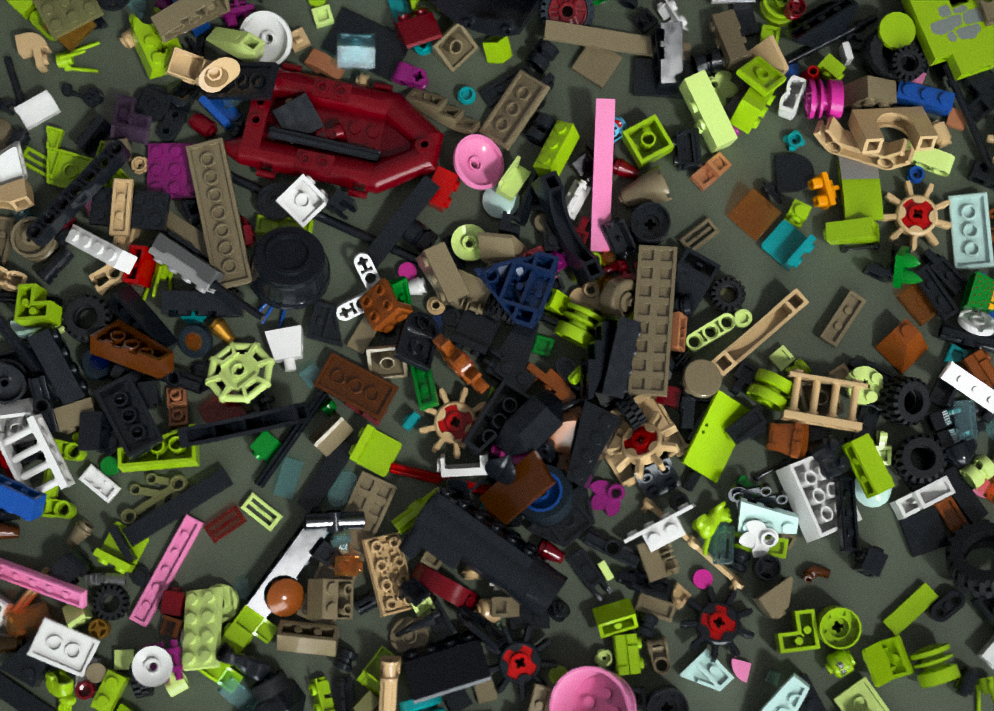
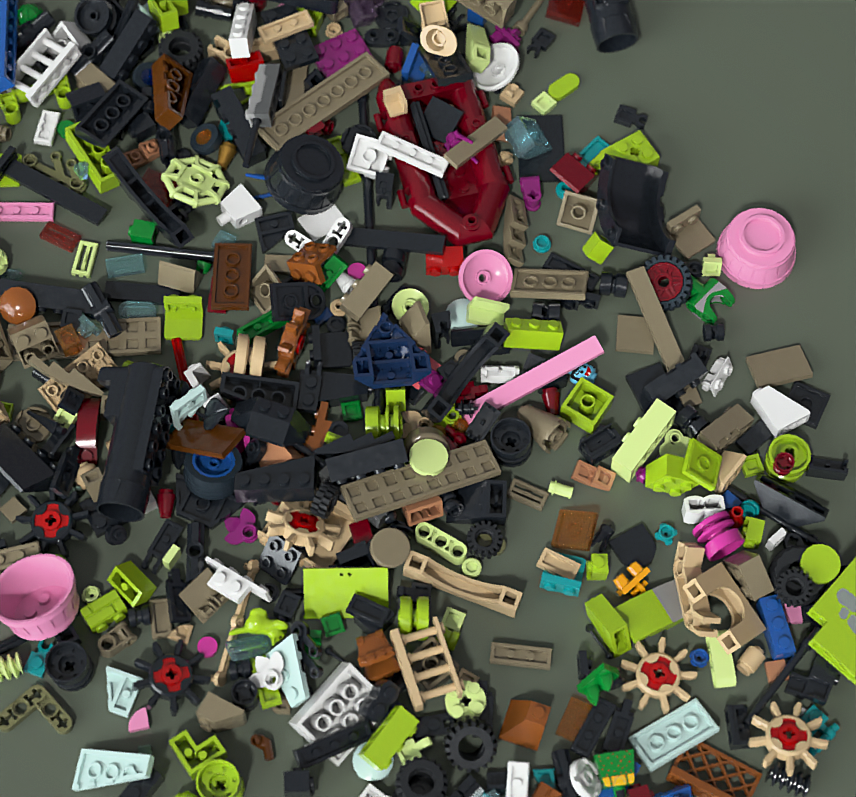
camera: 60 degrees right, 15 degrees down
(168, 471) = (81, 170): none -> clear light blue tile
(262, 148) = (395, 101): none -> tan panel
(325, 161) = (411, 154): none -> white tile
(330, 115) = (454, 138): none -> magenta plant
(341, 277) = (321, 223): none -> white sticker
(344, 98) = (481, 138): none -> dark tan tile
(392, 582) = (73, 378): none -> dark tan slope
(457, 410) = (250, 356): none -> tan wheel
(480, 496) = (187, 405): none -> light aqua wing
(598, 245) = (466, 408): none -> black wheel
(637, 302) = (428, 457): none -> yellowish green tile
(703, 493) = (287, 606): none -> black bracket
(707, 209) = (560, 489): none -> yellowish green pin
(736, 462) = (332, 624): none -> green tile
(780, 244) = (558, 564): none -> tan tile
(808, 59) = (750, 508): none -> teal plate

